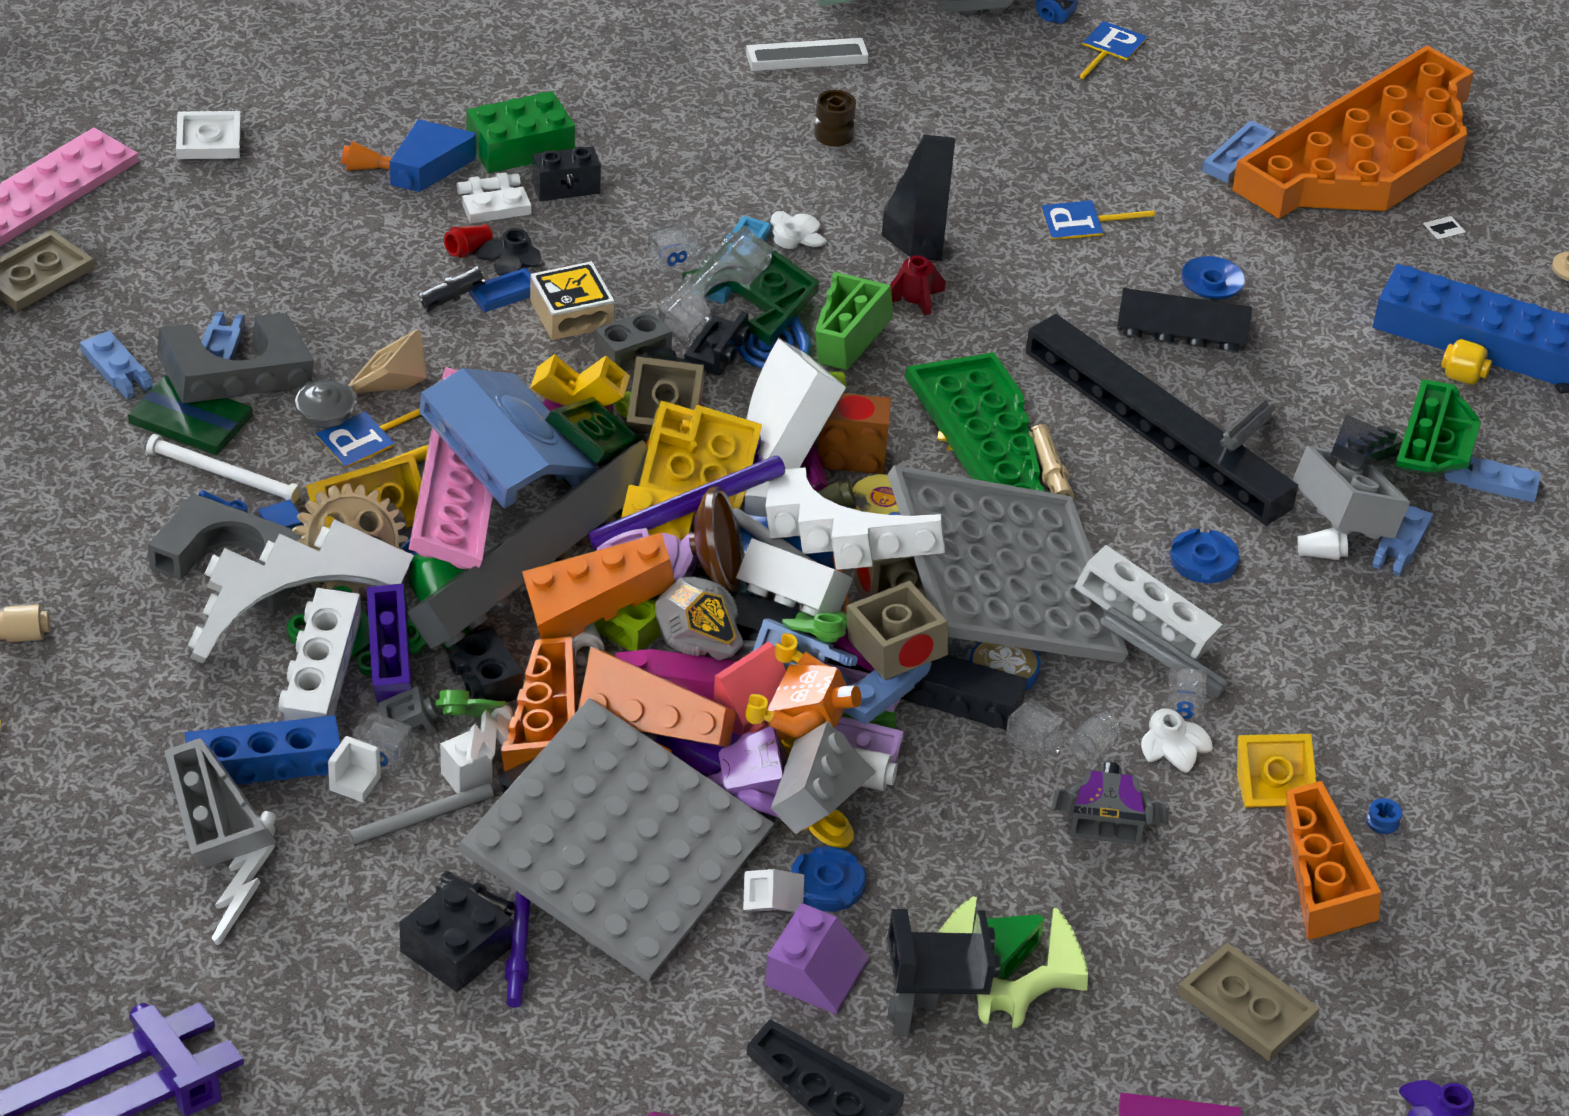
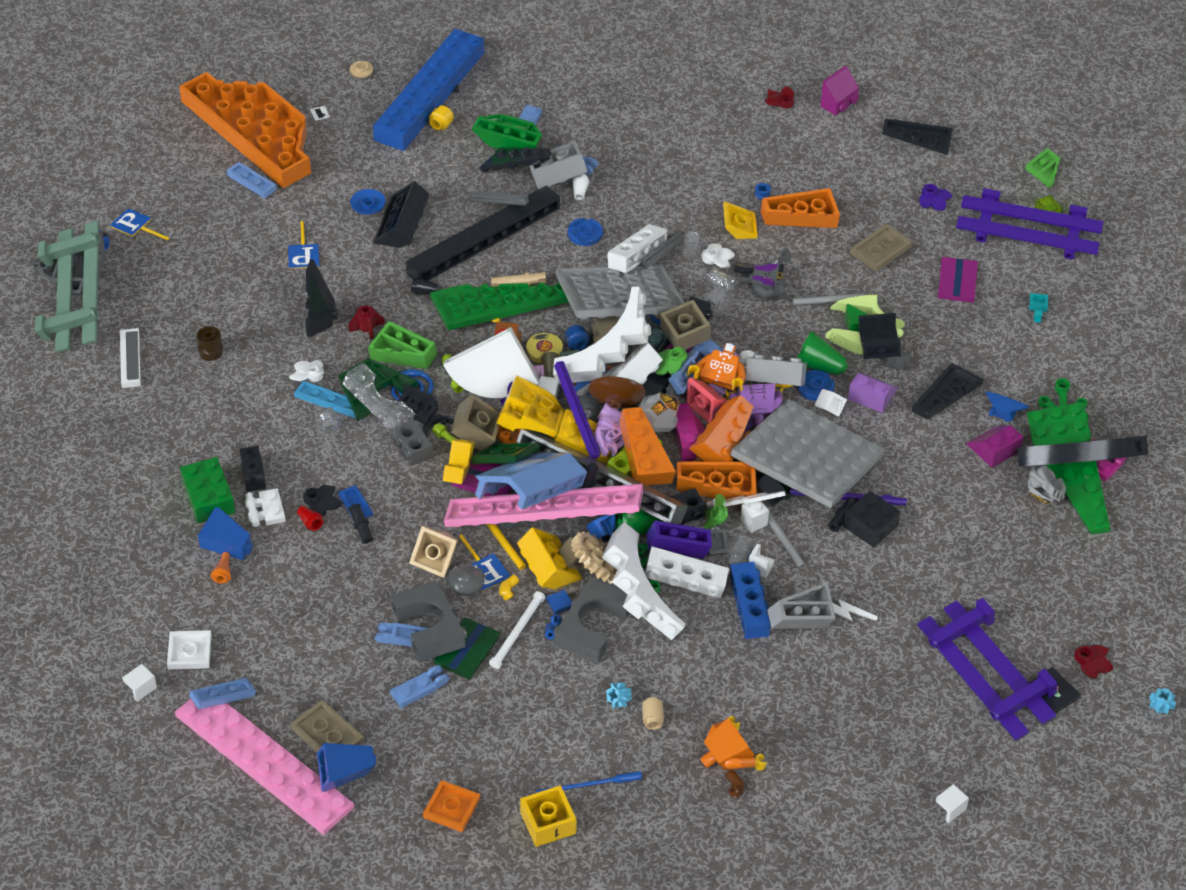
camera: 85 degrees left, 5 degrees up
(62, 578) = (618, 694): none -> medium azure gear
(115, 162) = (222, 693): none -> medium blue tile
(148, 90) = (140, 681): none -> white panel
(318, 455) = (505, 587): none -> yellow arm
(514, 514) = (592, 470): none -> black axle
(571, 300) = (374, 468): piece -> none
(893, 868) = (822, 356): none -> green cone
(1011, 346) = (422, 286): none -> black cone
(1079, 911) = (822, 299): none -> light grey bar
(1144, 770) = (740, 267): none -> black tile

